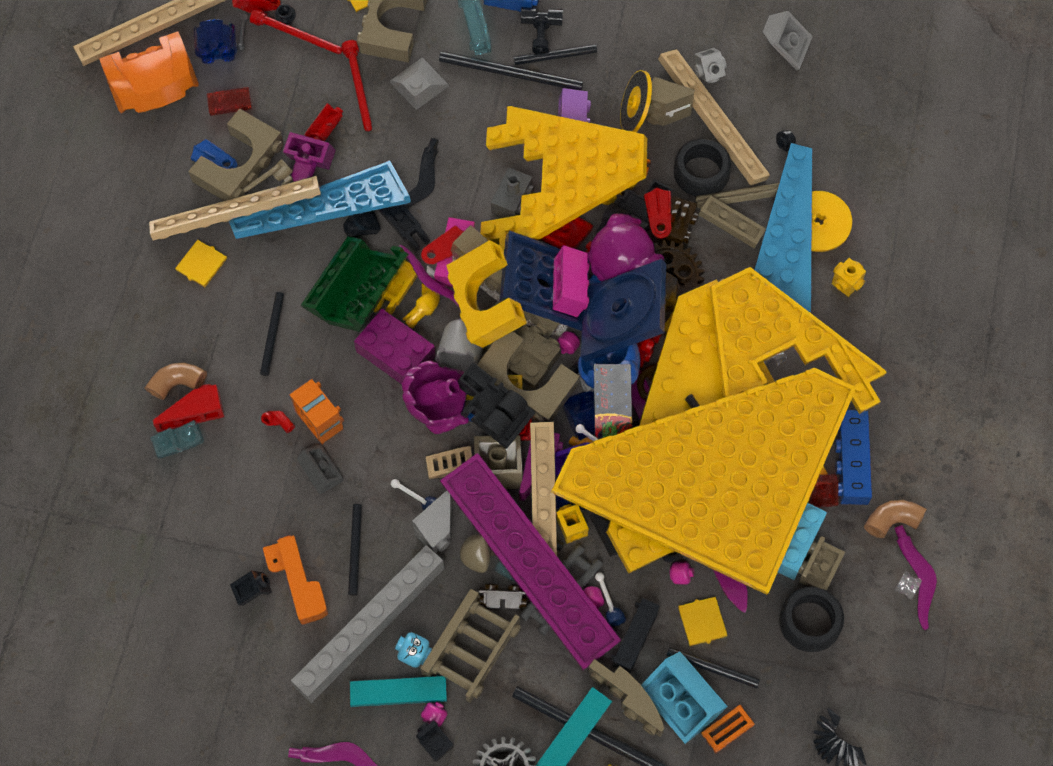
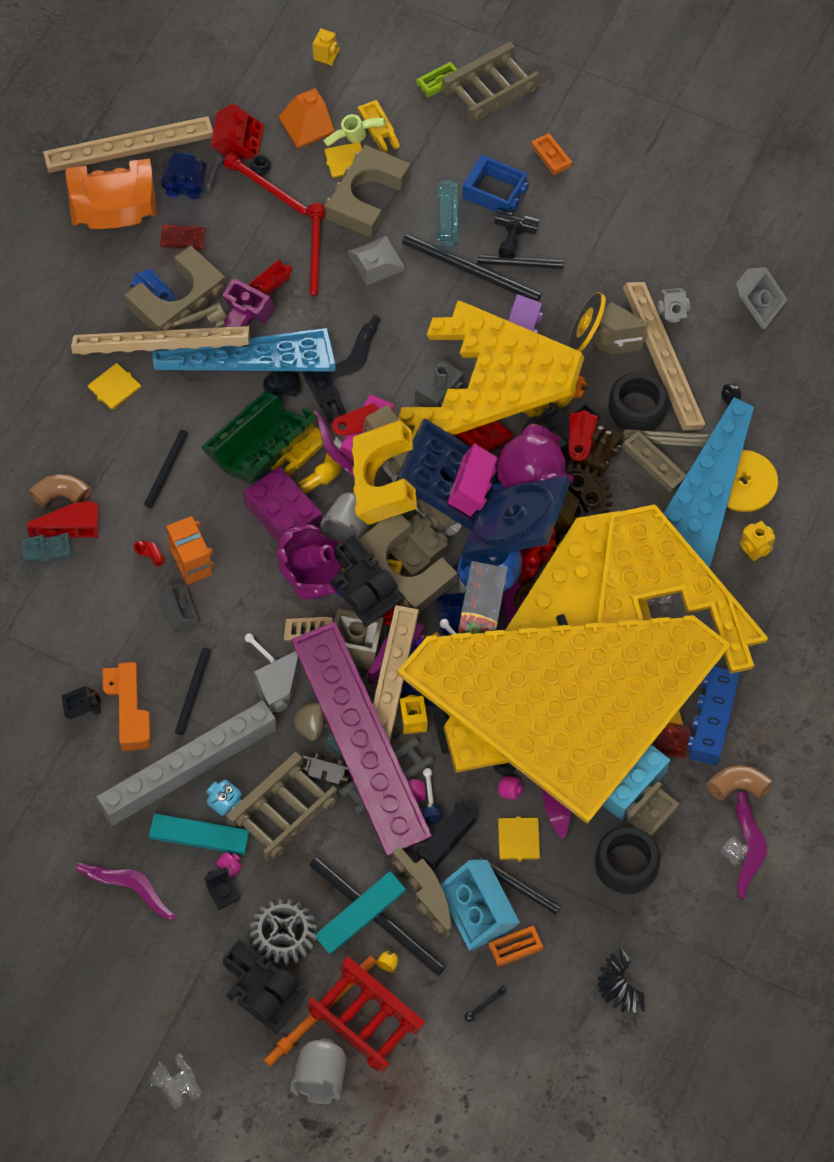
camera: 10 degrees right, 5 degrees down
(568, 342) = (456, 542): dark pink piece -> none

